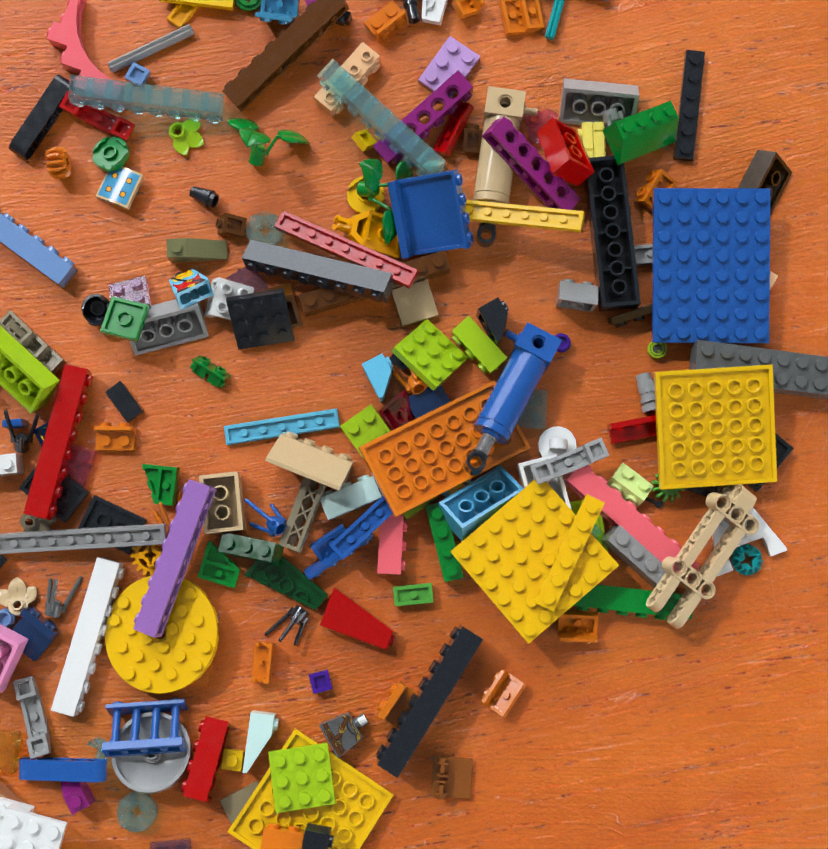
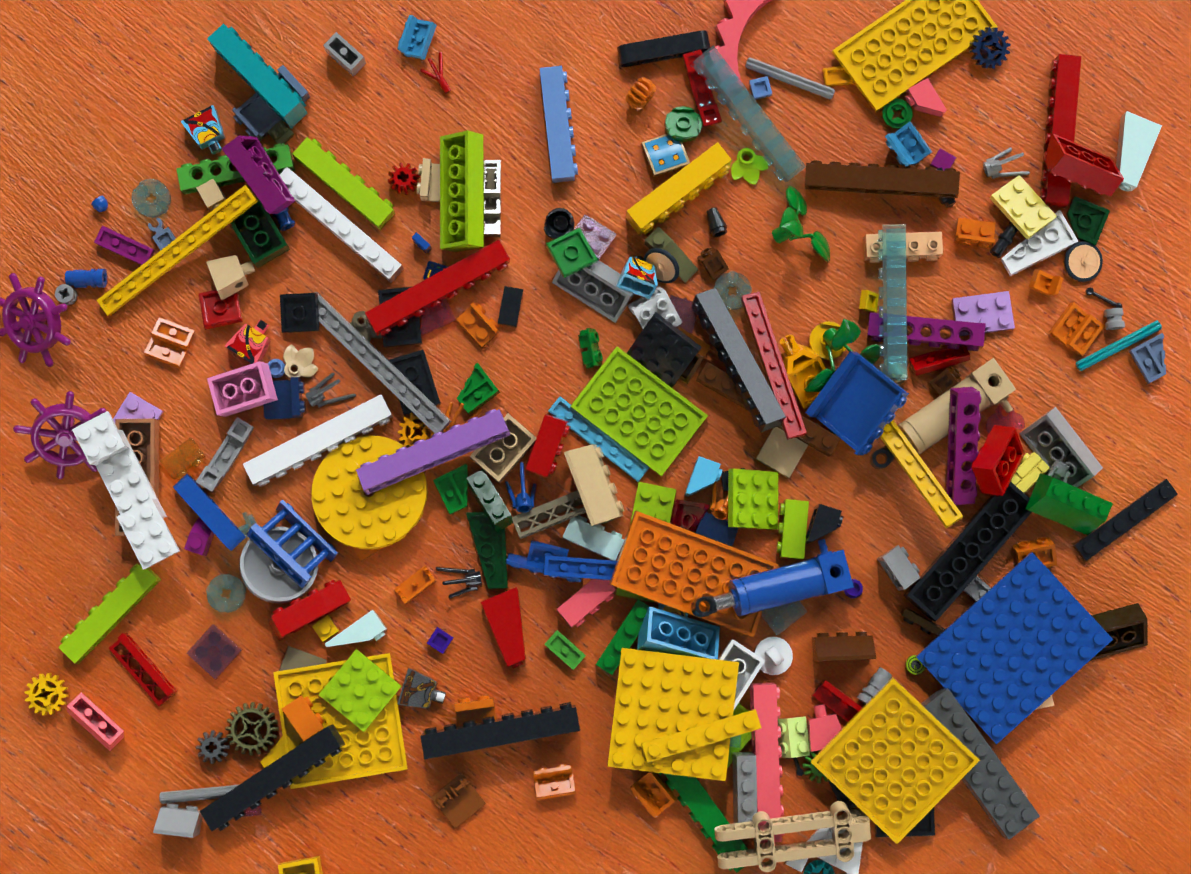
camera: 40 degrees right, 0 degrees up
(21, 440) = (413, 259): black plant -> none
(154, 199) = (678, 189): none -> yellow brick
(199, 260) = (665, 265): none -> light nougat wheel
(250, 468) = (548, 445): none -> red brick
(288, 378) = (639, 411): none -> lime plate
(569, 461) = (768, 675): light grey slope -> none
(597, 388) = (843, 647): none -> reddish brown slope
(642, 458) = (821, 728): none -> coral torso

